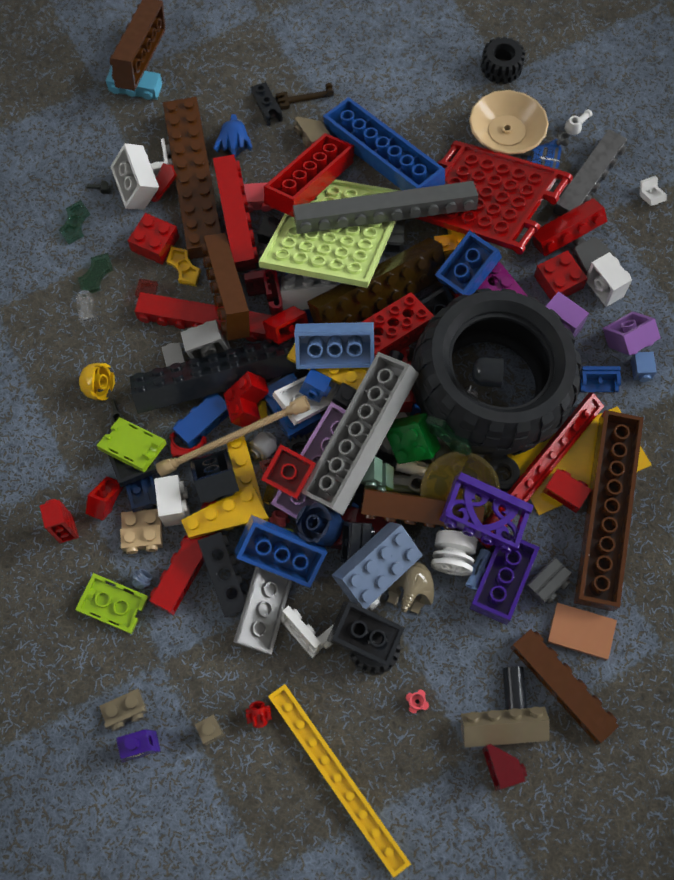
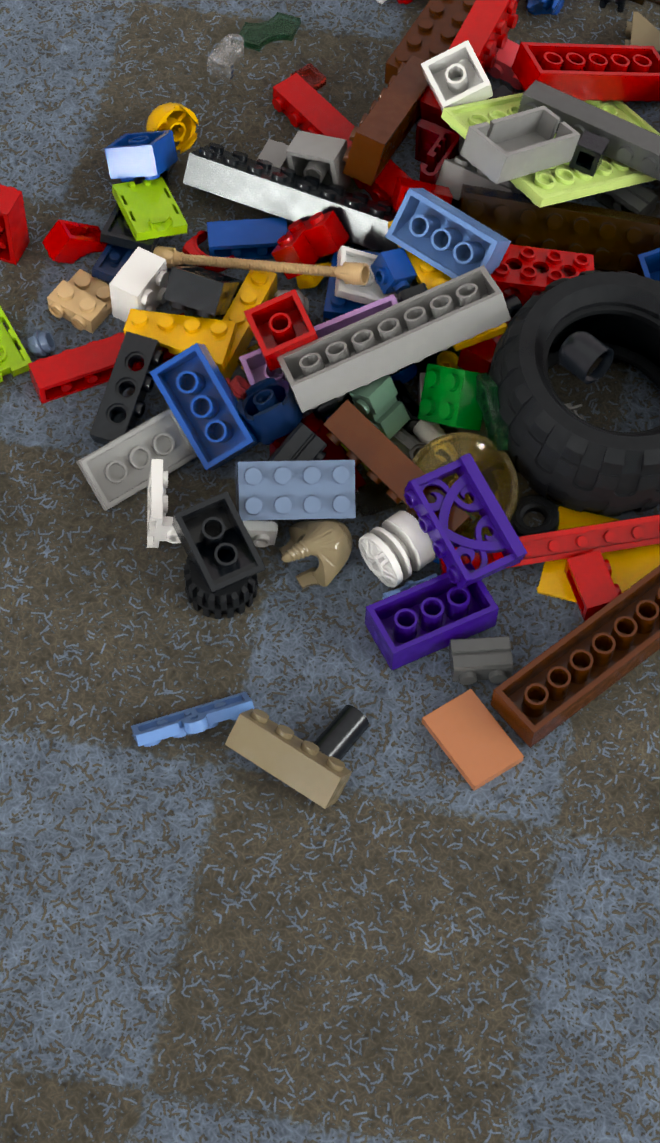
camera: 35 degrees right, 10 degrees down
(97, 413) = (141, 155): none -> brick
(153, 238) = (362, 34): red brick -> none
(187, 271) = (371, 78): yellow tile -> none
(249, 236) = (457, 77): none -> white brick
(258, 714) = (38, 551): red gear -> none
(328, 259) = (519, 144): none -> light grey piece
(340, 781) = (61, 680): yellow plate -> none
(361, 231) = (589, 153): none -> black brick
(414, 707) = (218, 660): coral plate -> none
(432, 746) = (191, 720): none -> medium blue hinge
(503, 768) = (244, 794): dark red slope -> none
(565, 687) = (396, 774): reddish brown brick -> none

